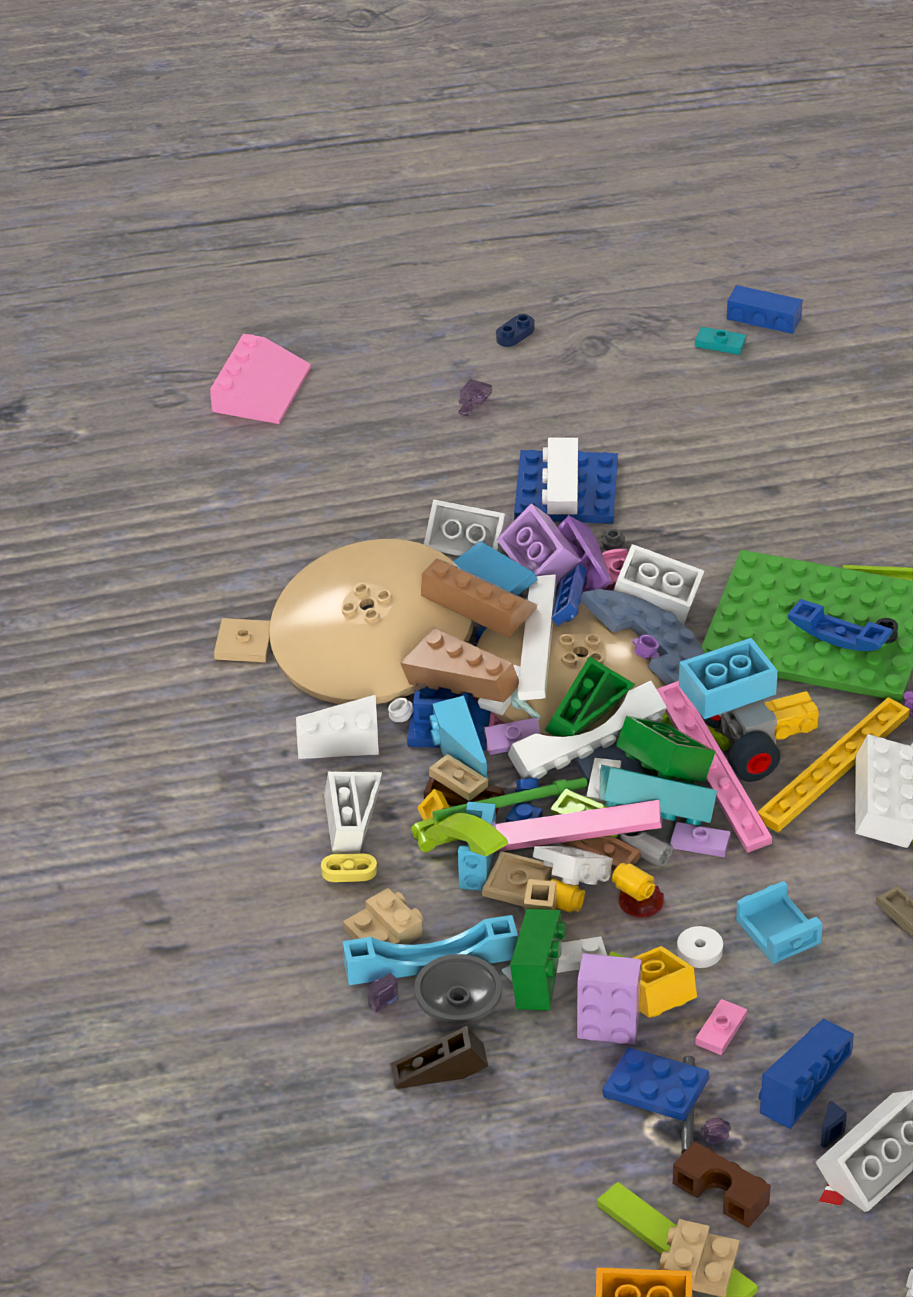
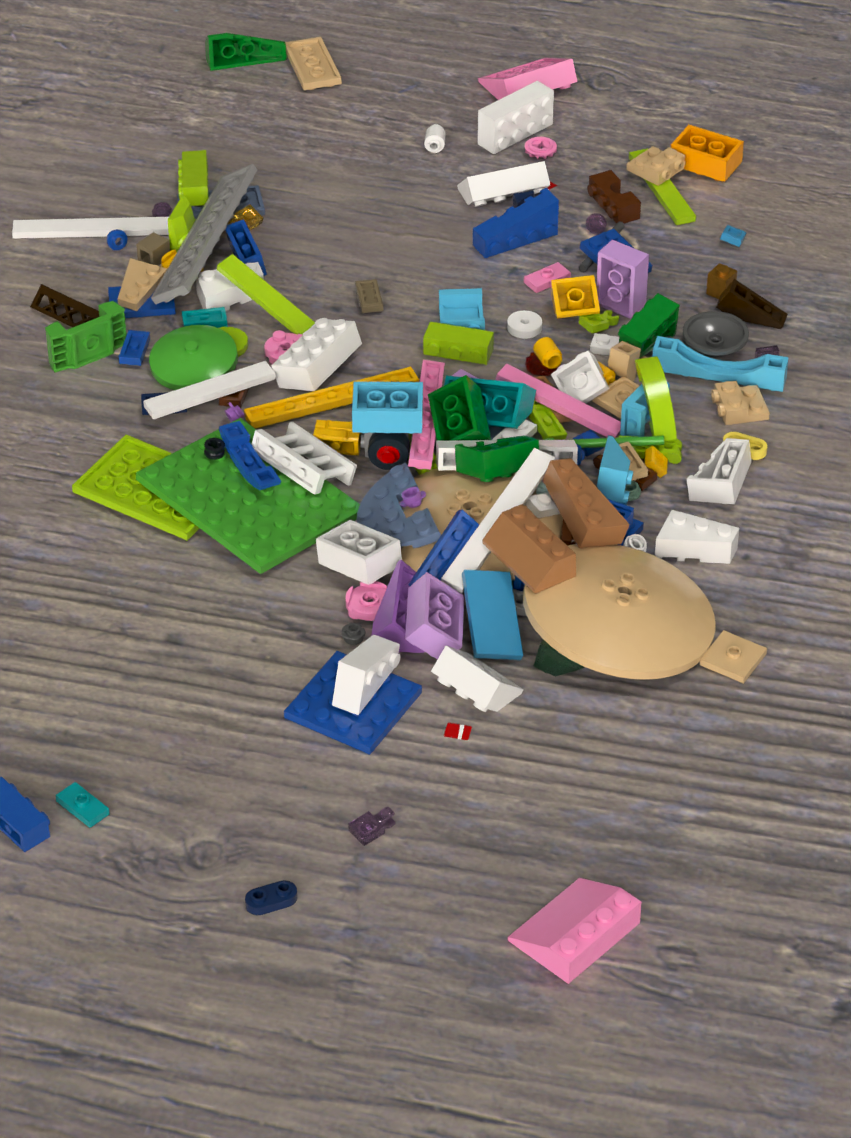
camera: 155 degrees left, 0 degrees up
(459, 498) = (457, 731): none -> red sticker
(497, 1085) = (719, 280): none -> pearl gold brick
(528, 1183) = (733, 235): none -> dark azure tile
(742, 877) = (458, 343): none -> lime brick
(813, 645) = (297, 467): none -> white fence
(892, 1242) = (534, 144): none -> bright pink gear

